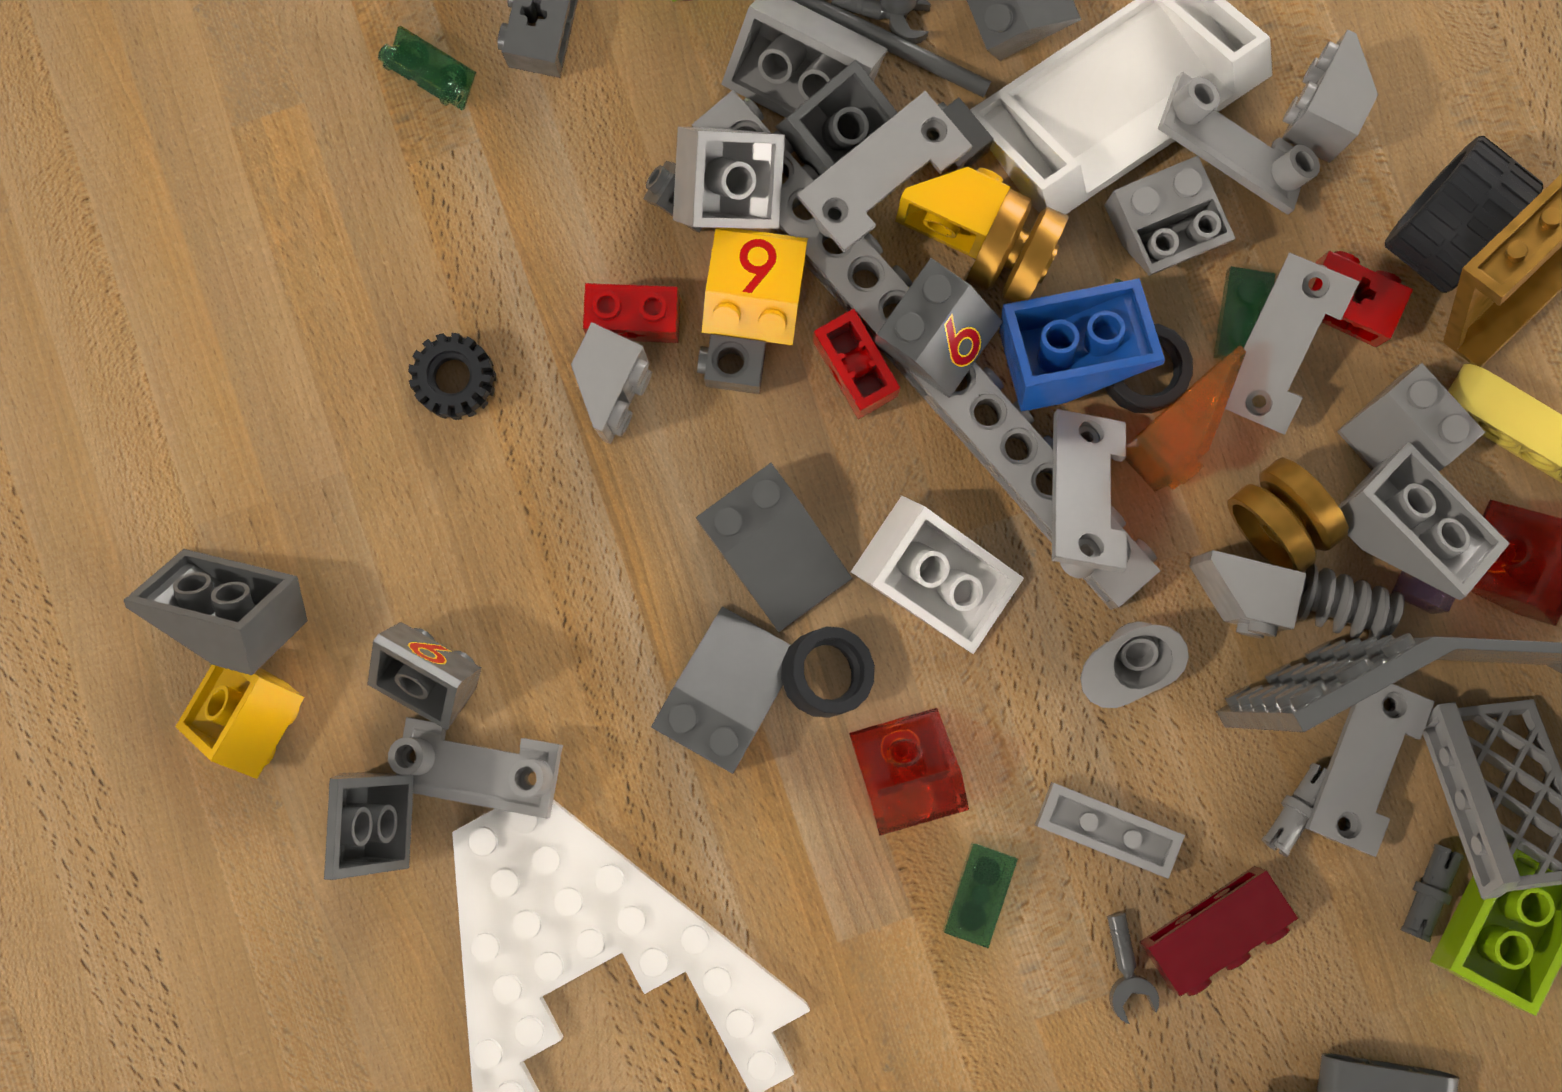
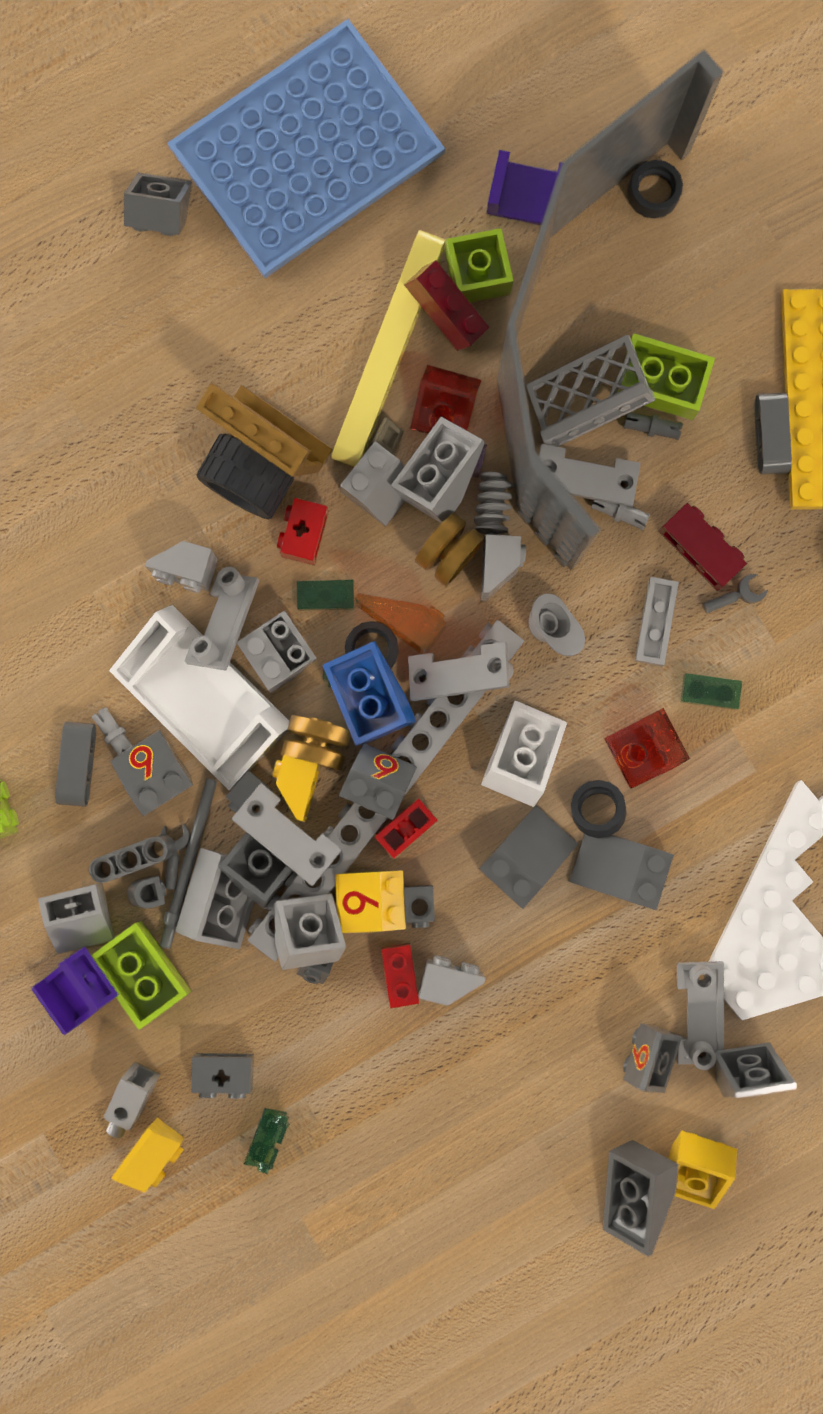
camera: 105 degrees left, 0 degrees up
(443, 350) = (466, 1098): black tyre -> none
(1283, 338) = (342, 571): light grey brick -> none
(1486, 461) = (387, 435): none -> dark tan slope

